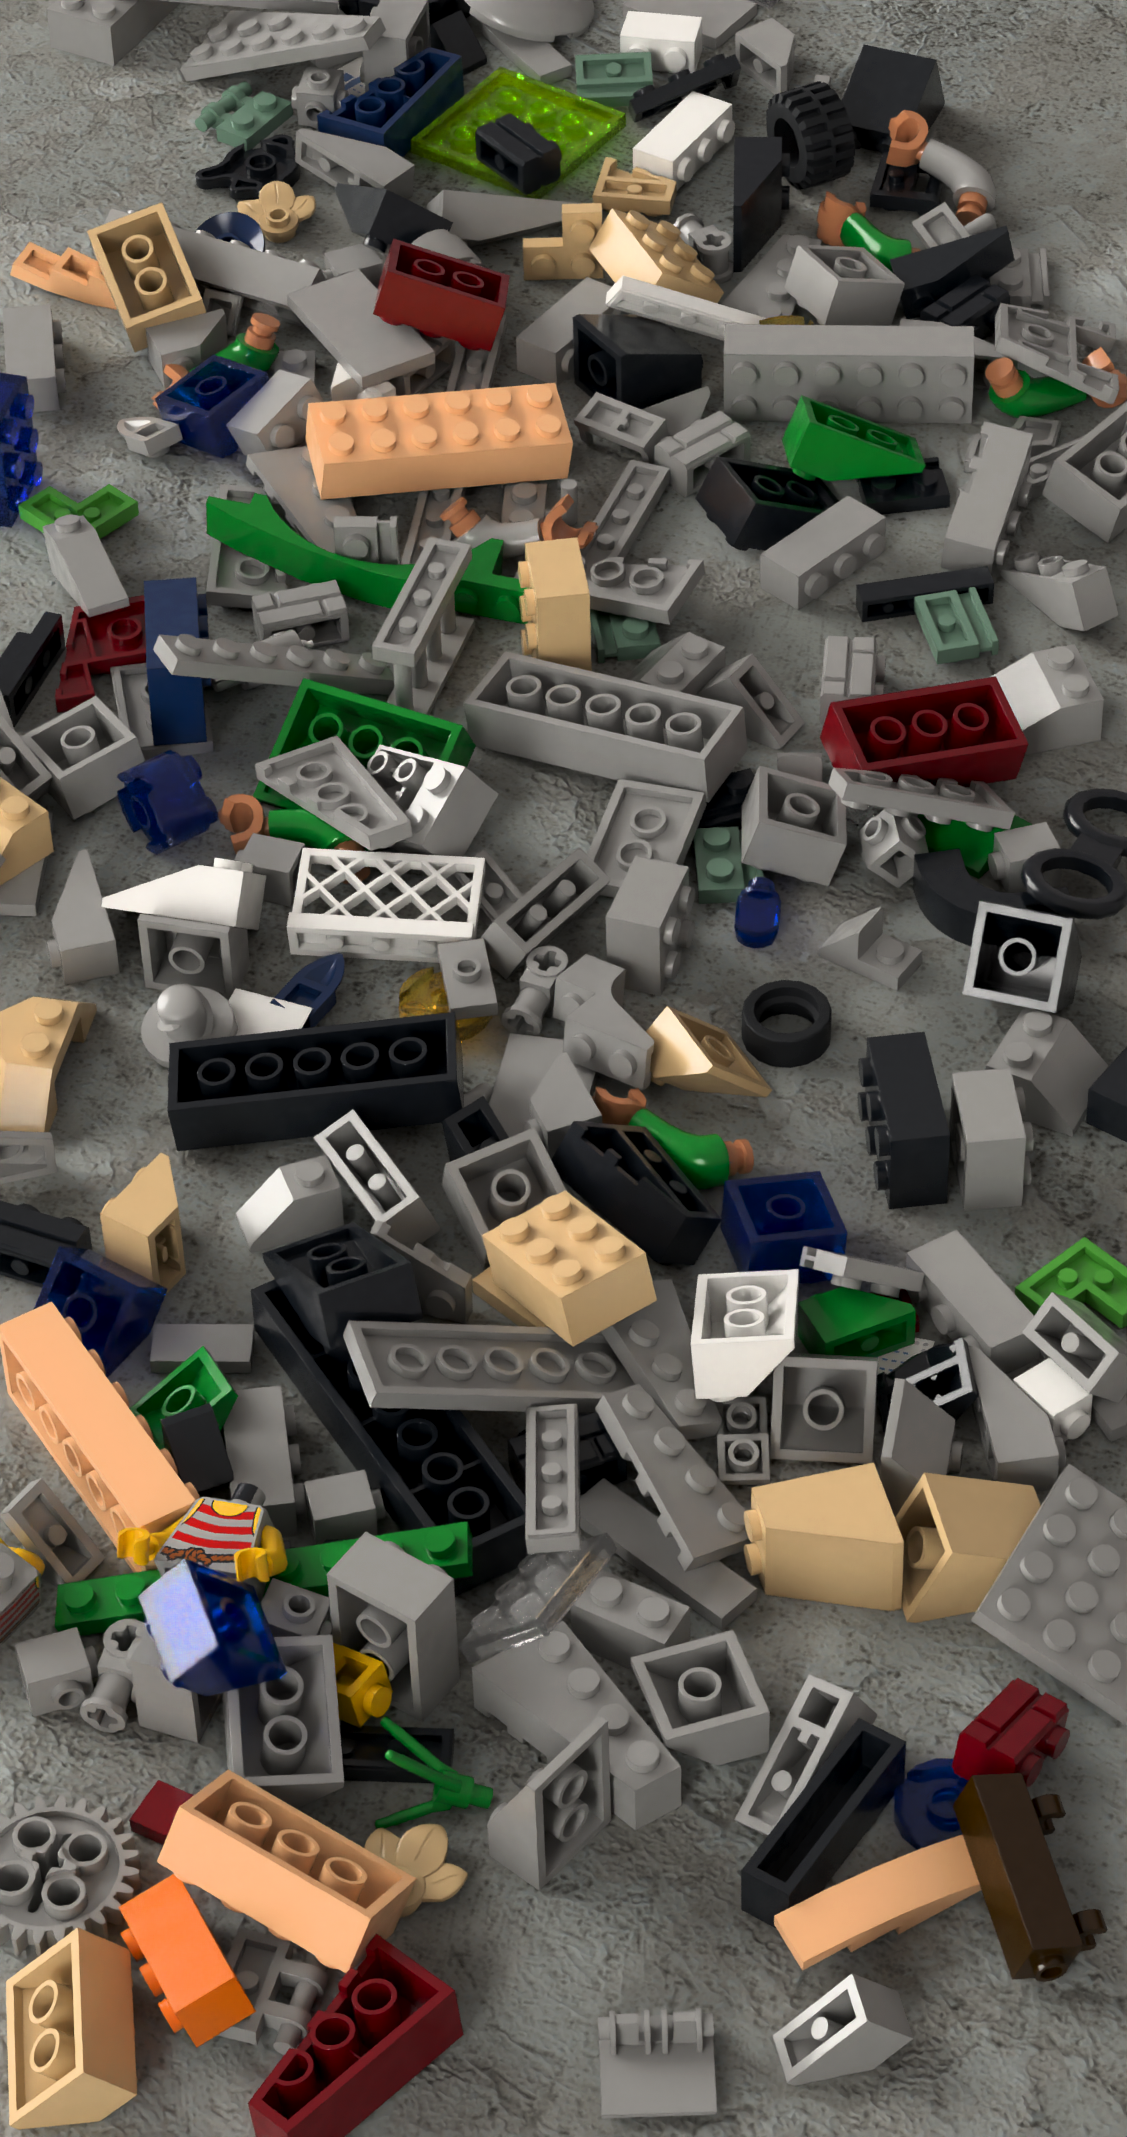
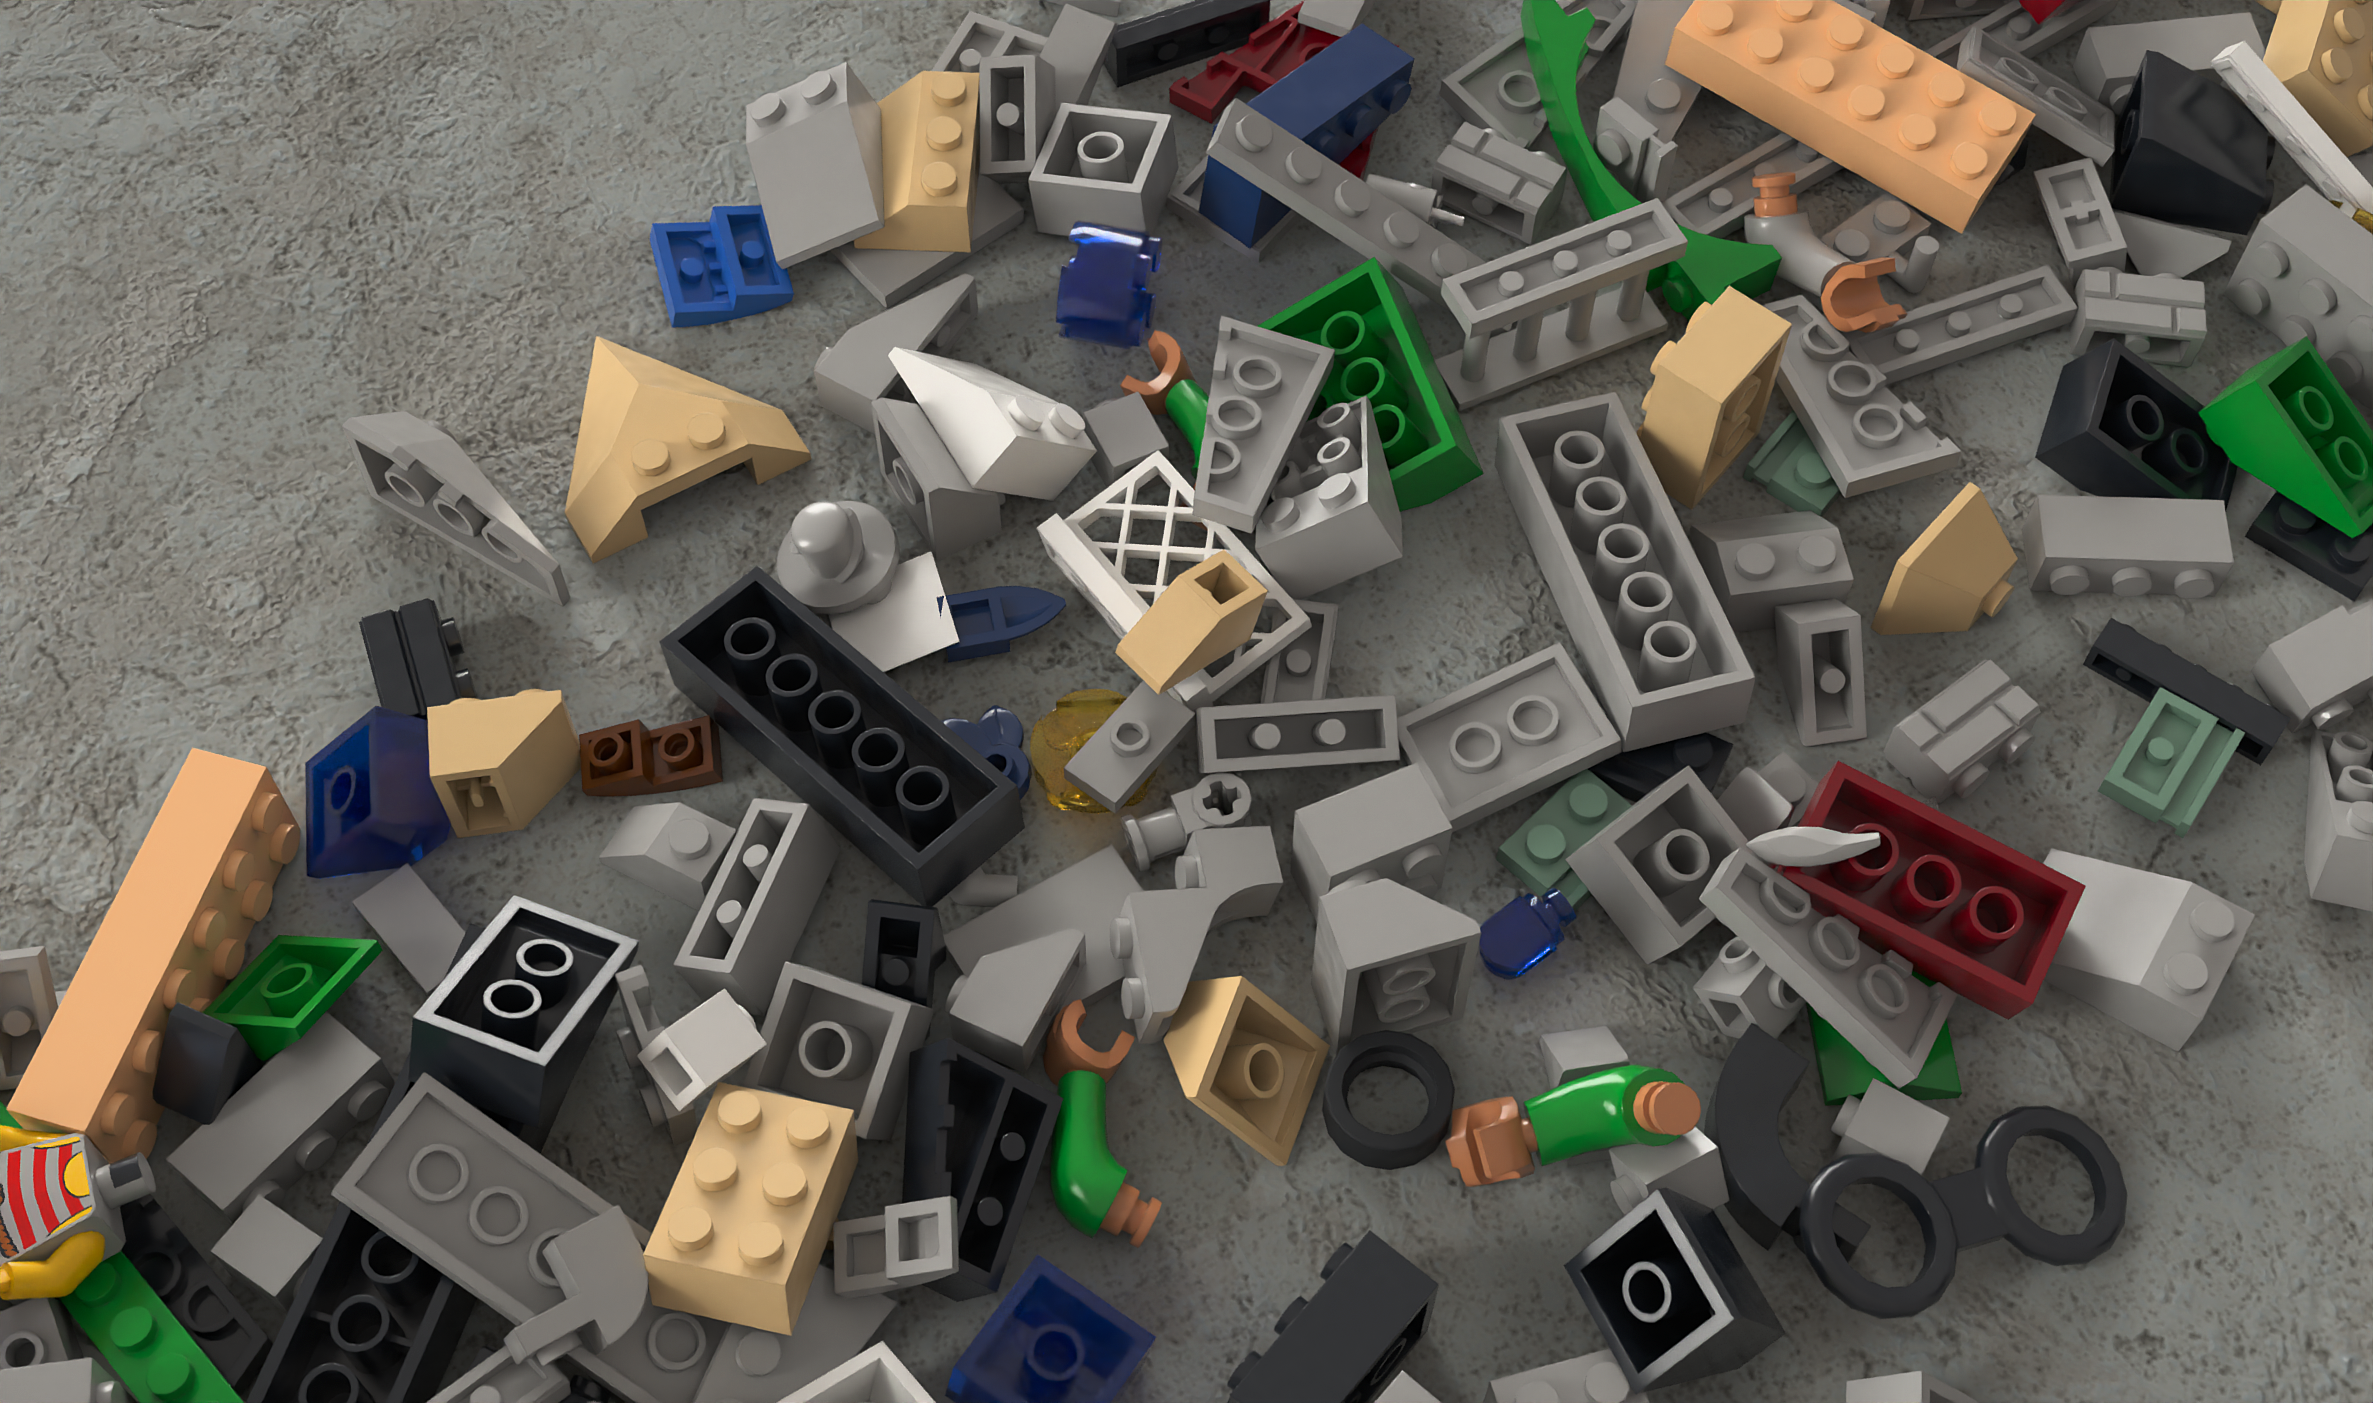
camera: 45 degrees right, 15 degrees up
(218, 1186) = (644, 762): none -> reddish brown slope
(441, 888) = (1194, 622): none -> tan slope
(455, 1230) = (702, 1049): none -> white brick
(543, 1345) = (604, 1288): none -> light grey brick
(565, 382) = (2057, 105): none -> light grey tile
(665, 1221) = (896, 1249): none -> light grey slope
(725, 947) = (1390, 960): none -> light grey slope
(762, 613) = (1950, 572): none -> tan slope
(862, 744) = (1809, 846): none -> light grey bar
(893, 939) = (1576, 1118): none -> piece
(947, 943) = (1685, 1166): none -> light grey brick

